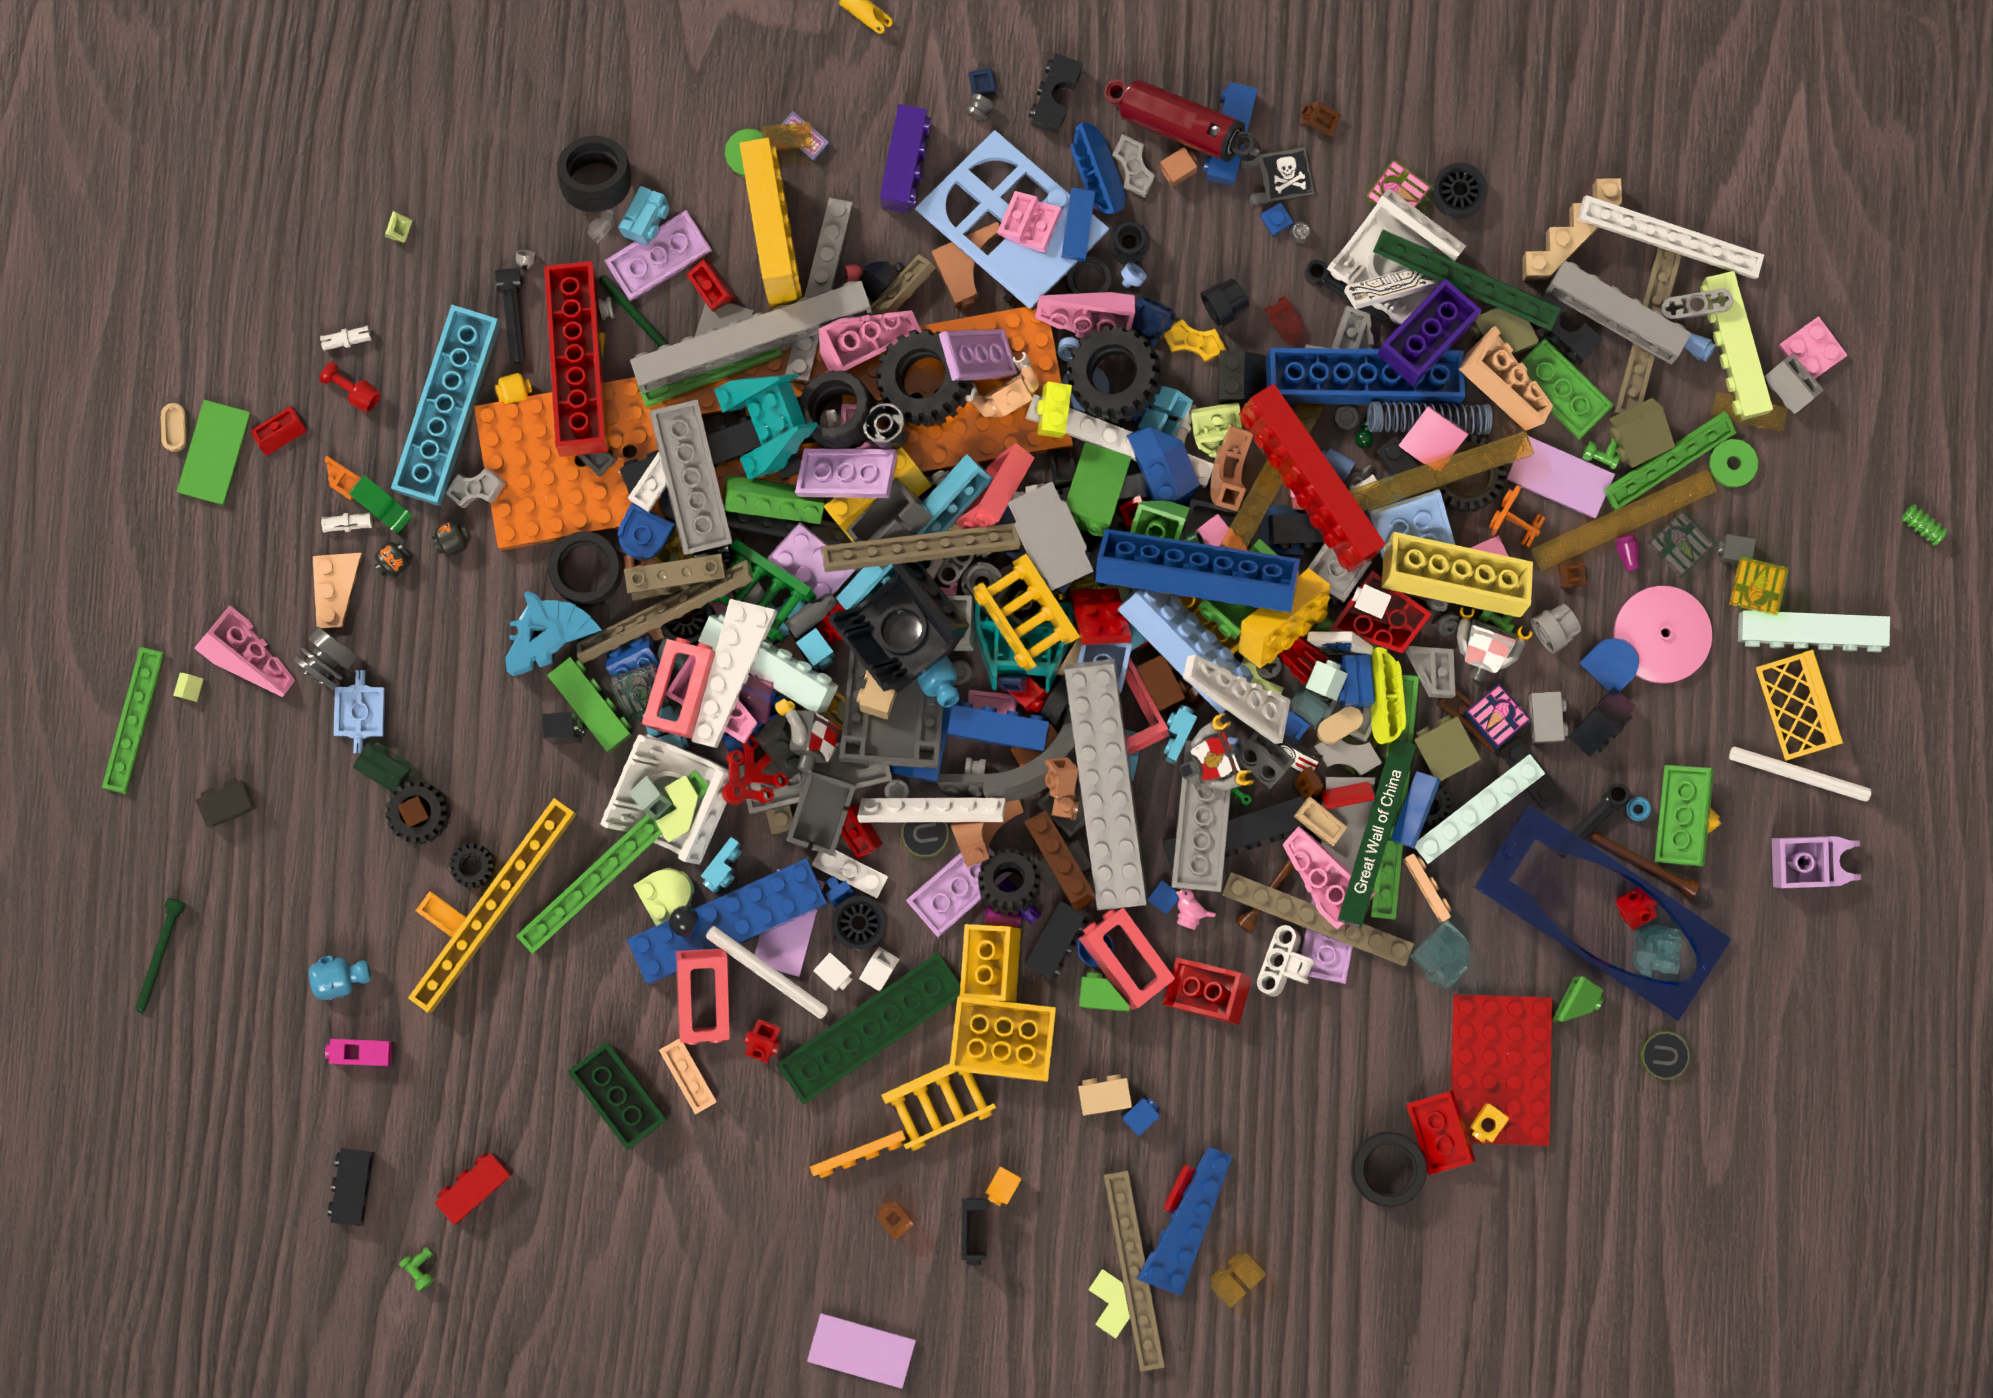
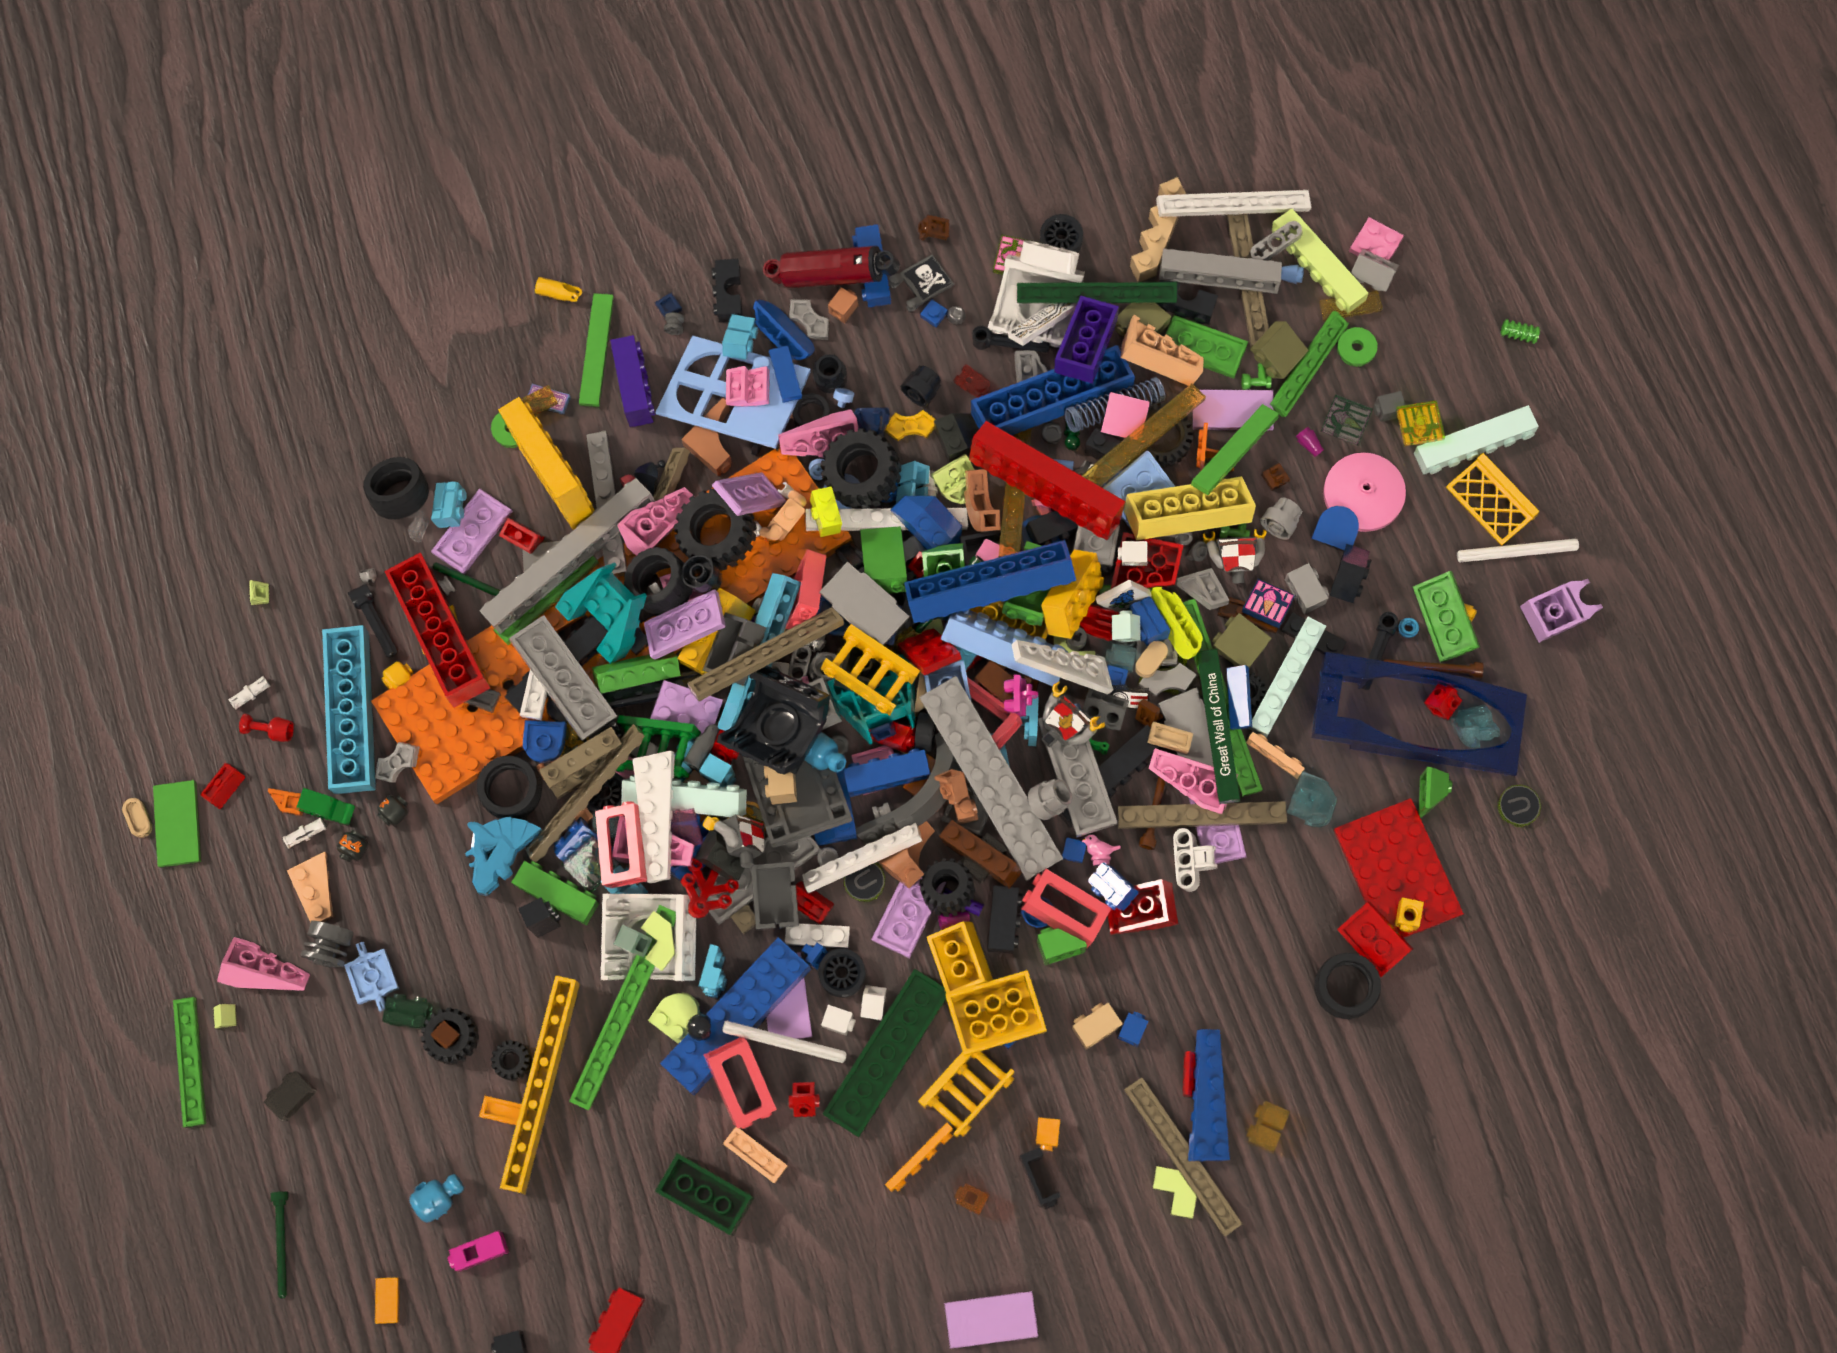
camera: 20 degrees left, 10 degrees down
(246, 1061) = (387, 1300): none -> light orange tile
(880, 100) = (596, 350): none -> bright green tile
(1043, 159) = (739, 337): none -> medium azure piece
(1159, 835) = (1049, 798): none -> light grey piece
(1178, 710) = (1022, 695): none -> dark pink hips
(1186, 956) = (1112, 886): none -> brick
(1347, 795) = (1182, 709): red slope -> none
(1431, 215) = (1049, 257): none -> white piece
(1538, 528) = (1235, 449): none -> bright green tile
(1623, 520) = (1295, 421): clear yellow plate -> none

